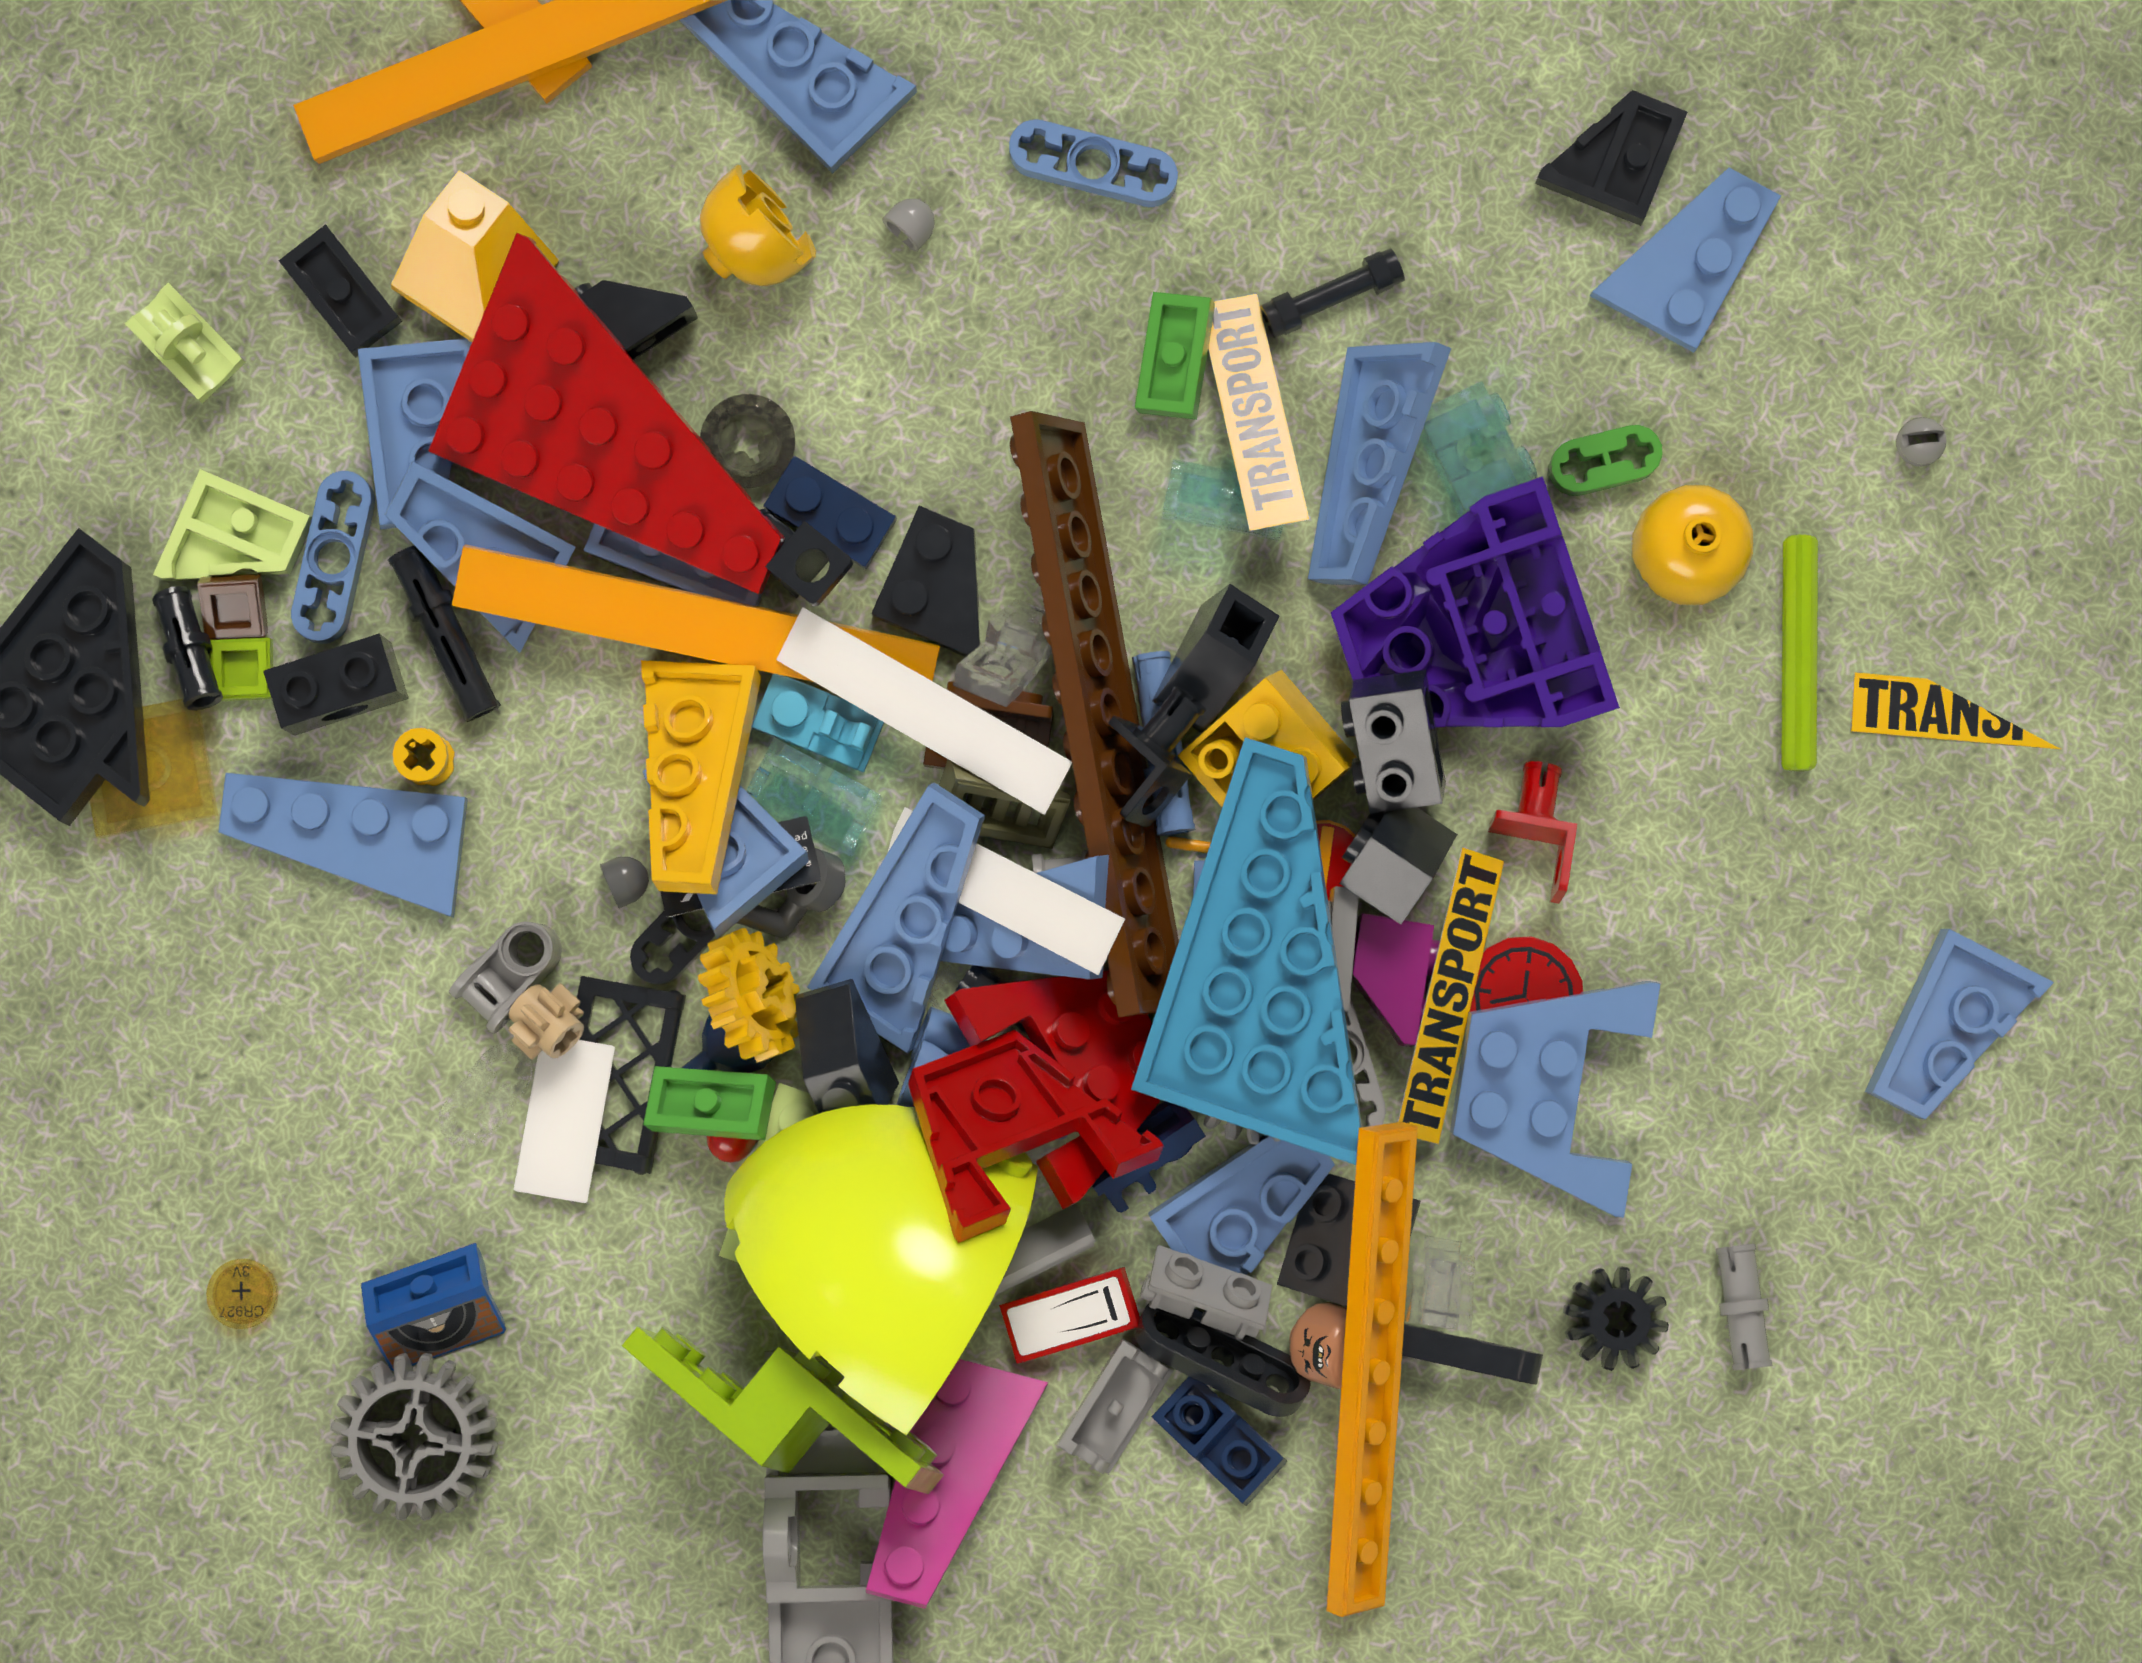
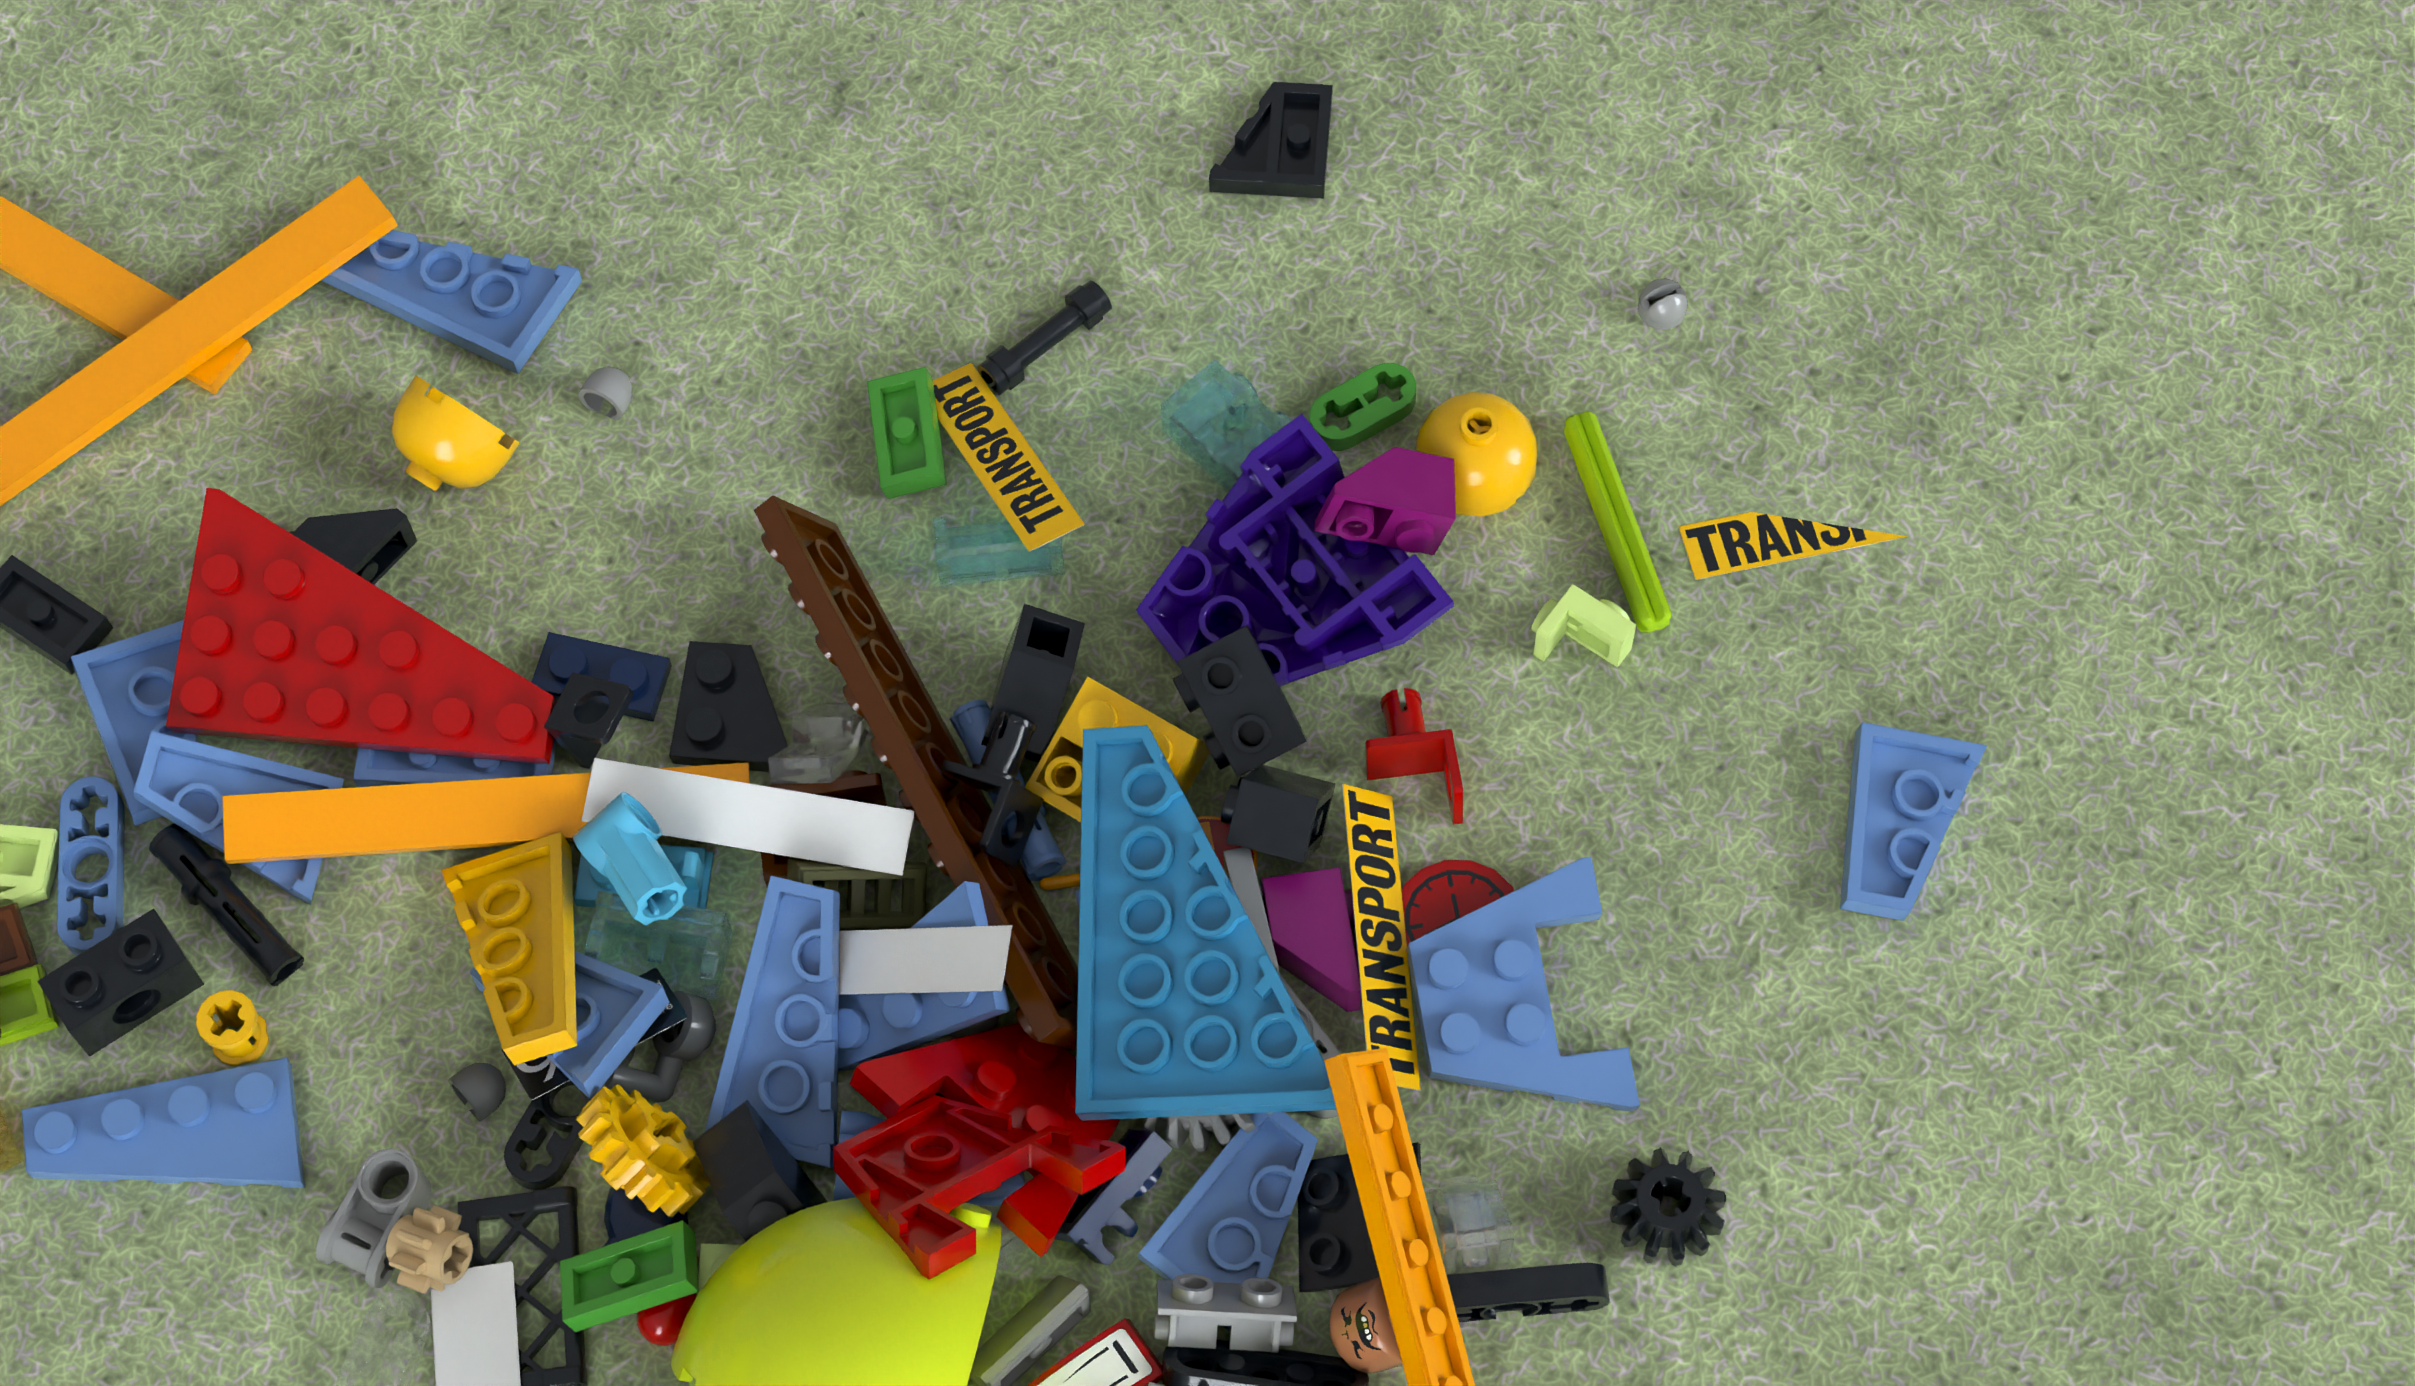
camera: 15 degrees left, 20 degrees down
(461, 254) = (151, 539): yellow slope -> none
(758, 415) = (503, 609): clear smoke gear -> none
(806, 707) = (626, 850): none -> medium azure piece
(1046, 167) = (757, 275): medium blue beam -> none
(1373, 441) = (1127, 459): medium blue wing -> none
(1604, 587) = (1394, 501): none -> magenta slope
(1691, 262) = (1384, 214): medium blue wing -> none
(1744, 753) = (1589, 621): none -> yellowish green bracket
(1744, 1307) = (1798, 1156): light grey pin -> none

